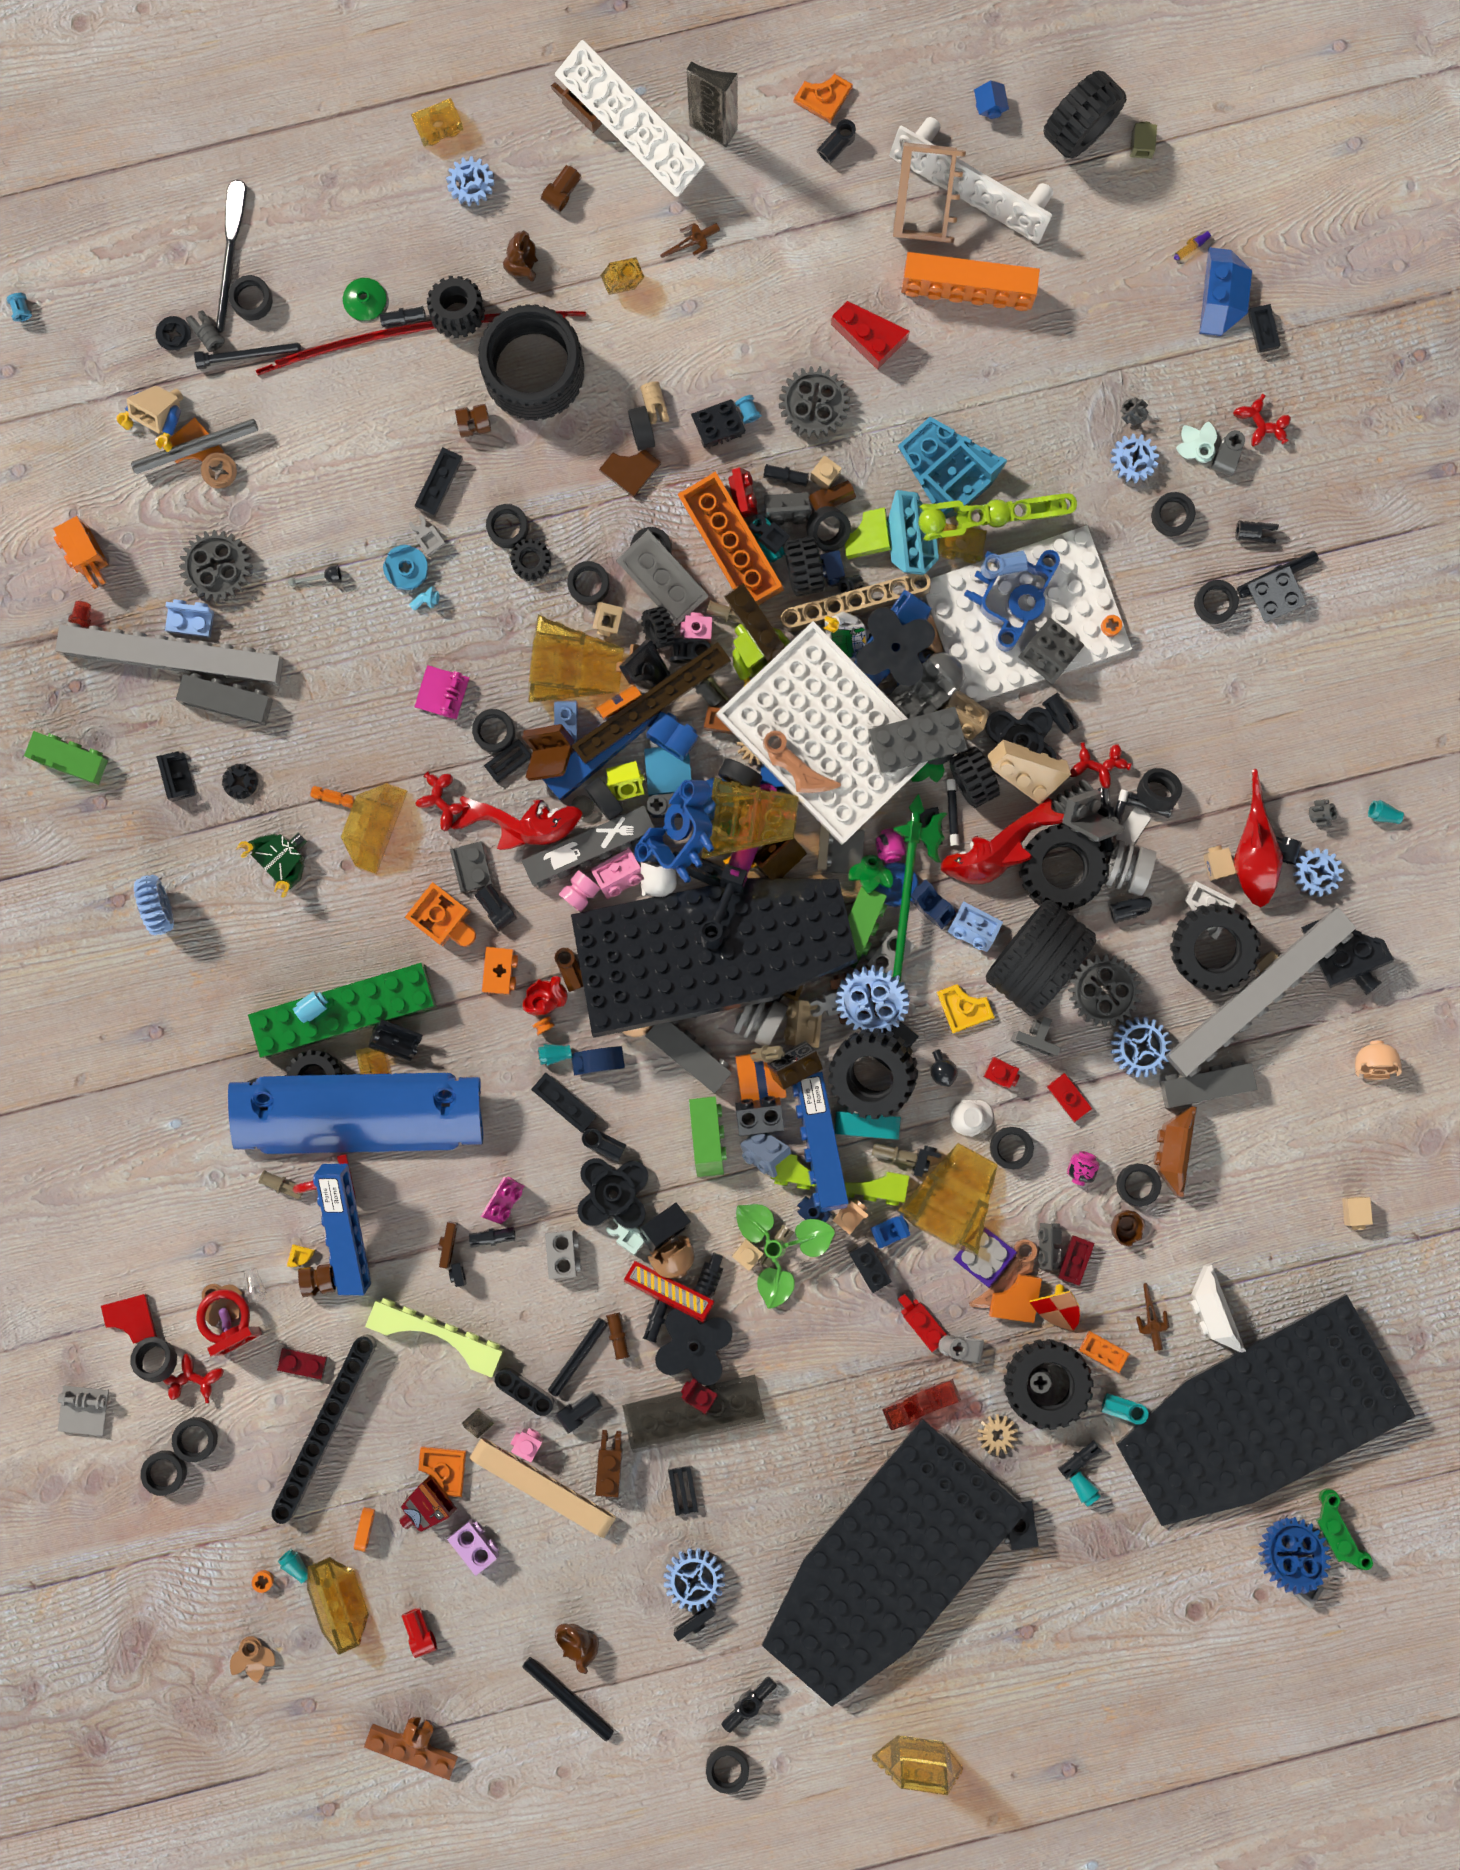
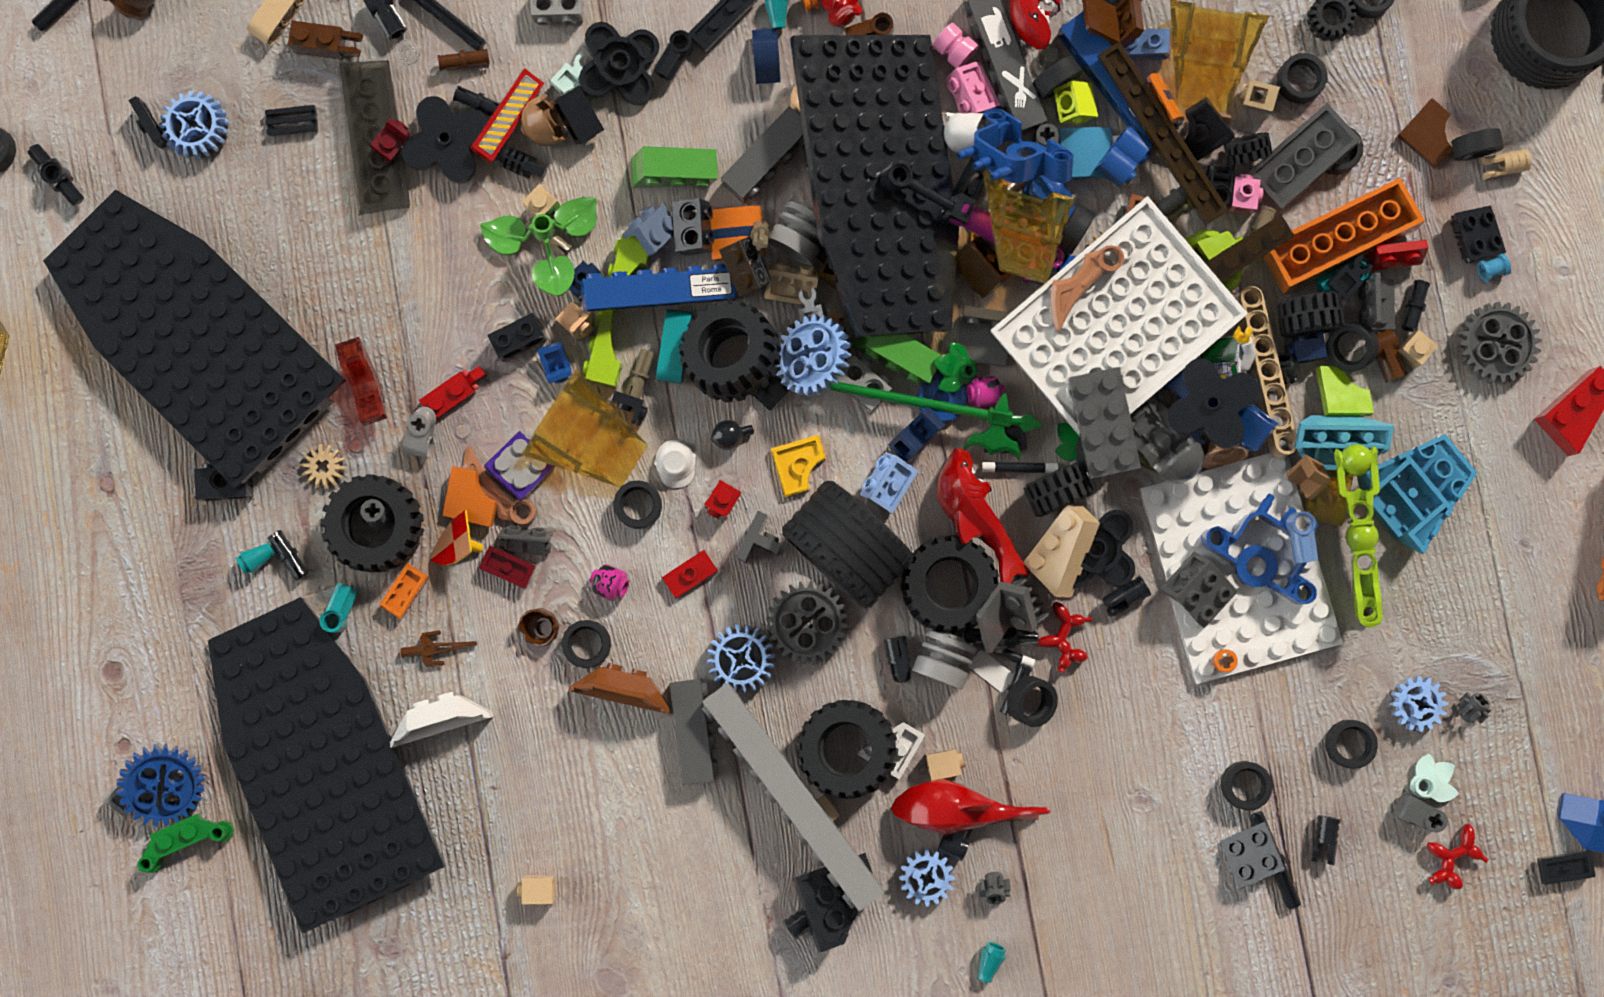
camera: 90 degrees right, 0 degrees up
(945, 559) = (1310, 476): none -> medium nougat panel
(970, 714) = (1131, 488): tan bracket -> none
(1378, 1061) = (706, 927): light nougat cylinder -> none

